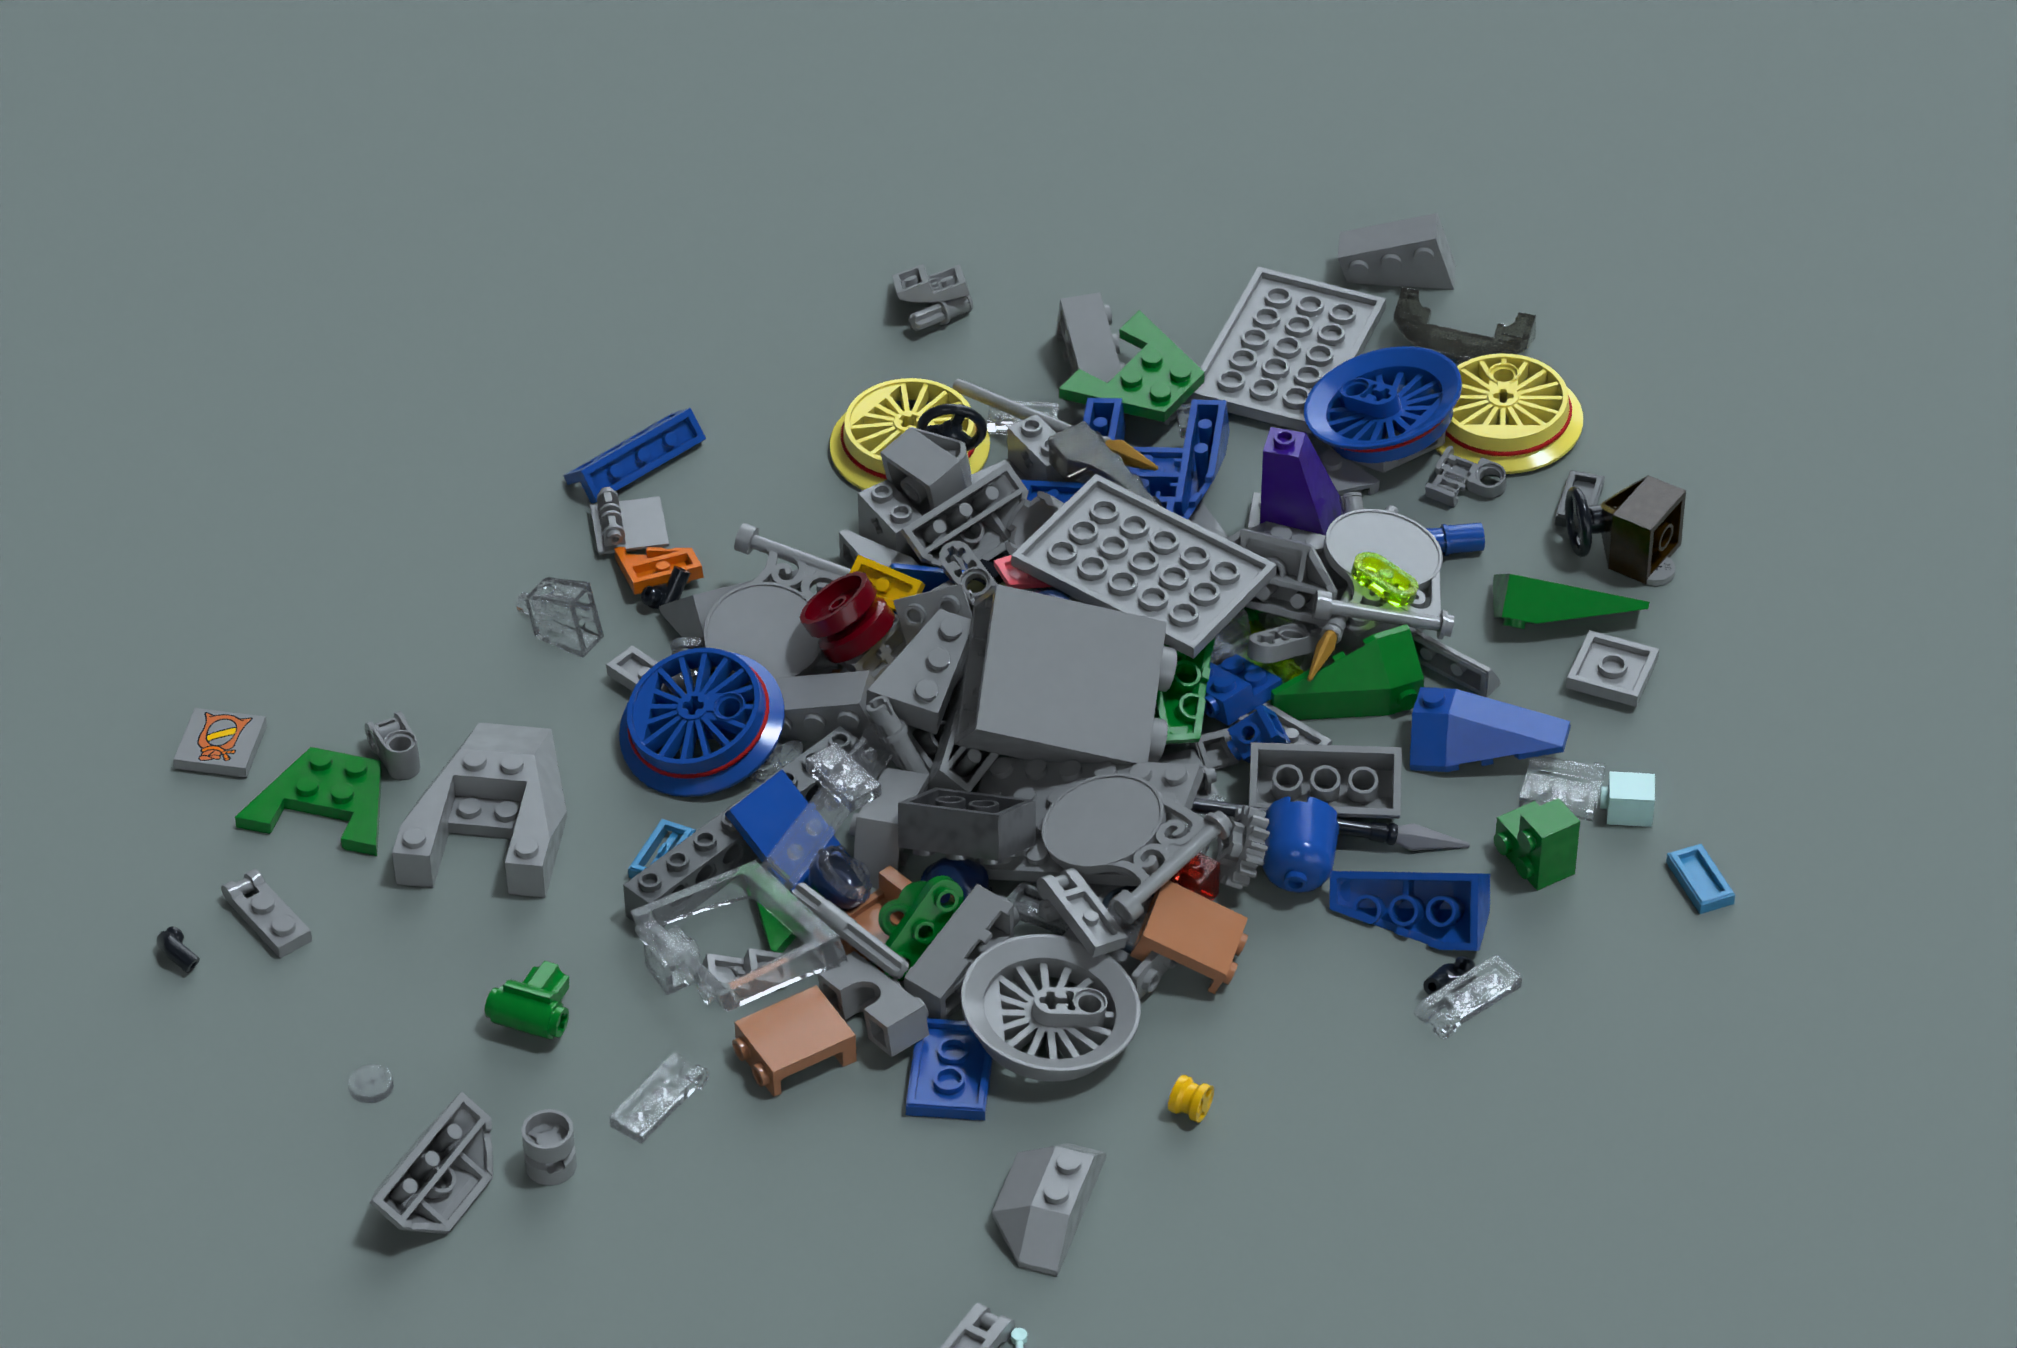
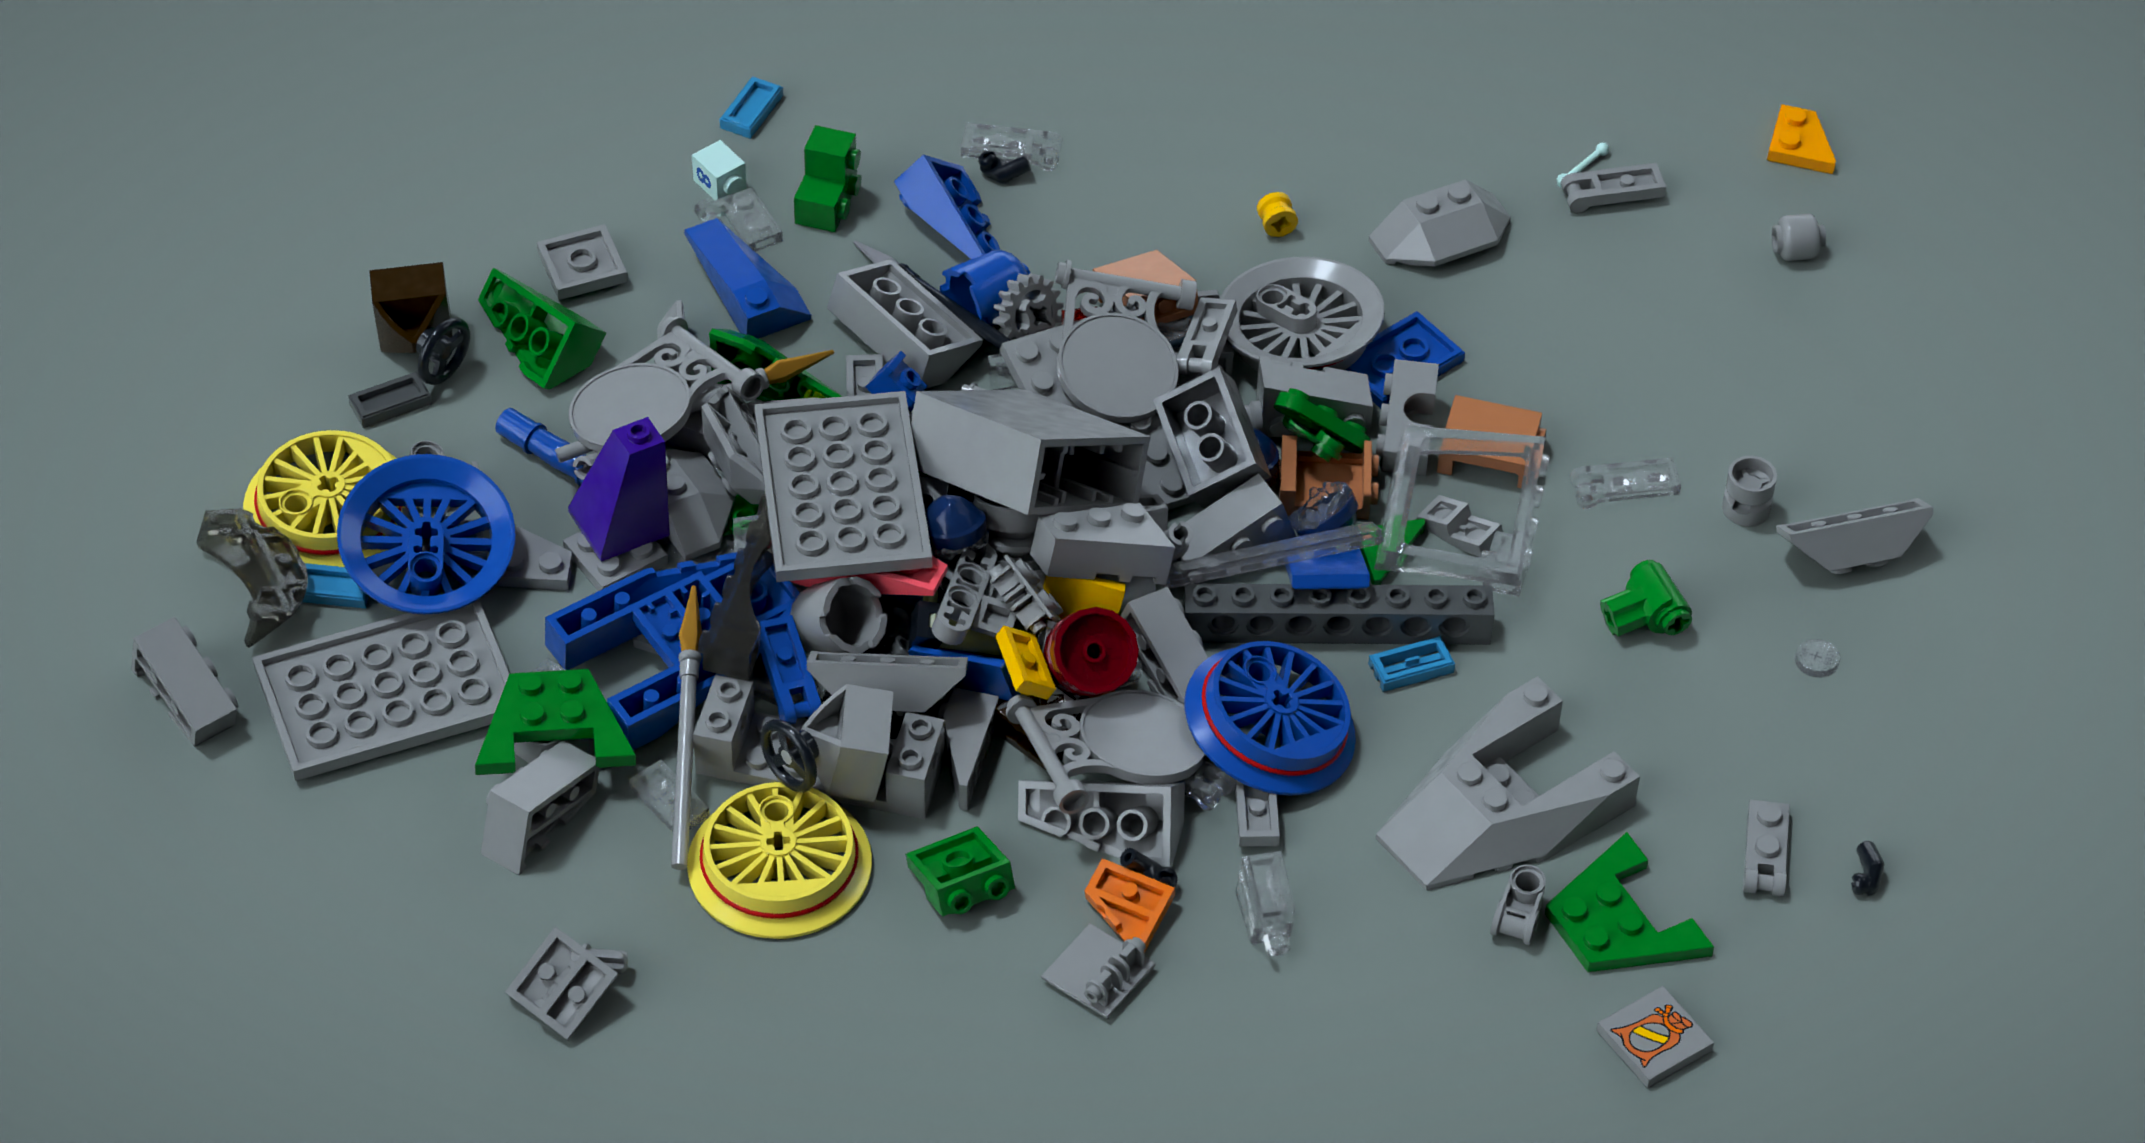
camera: 135 degrees left, 5 degrees up
(638, 454) = (1011, 1021): blue fence -> none
(783, 502) = (961, 871): none -> green plate
(843, 777) = (1253, 539): clear plate -> none
(852, 932) = (1376, 455): light grey axle -> none
(1384, 579) = (682, 359): clear neon green plate -> none

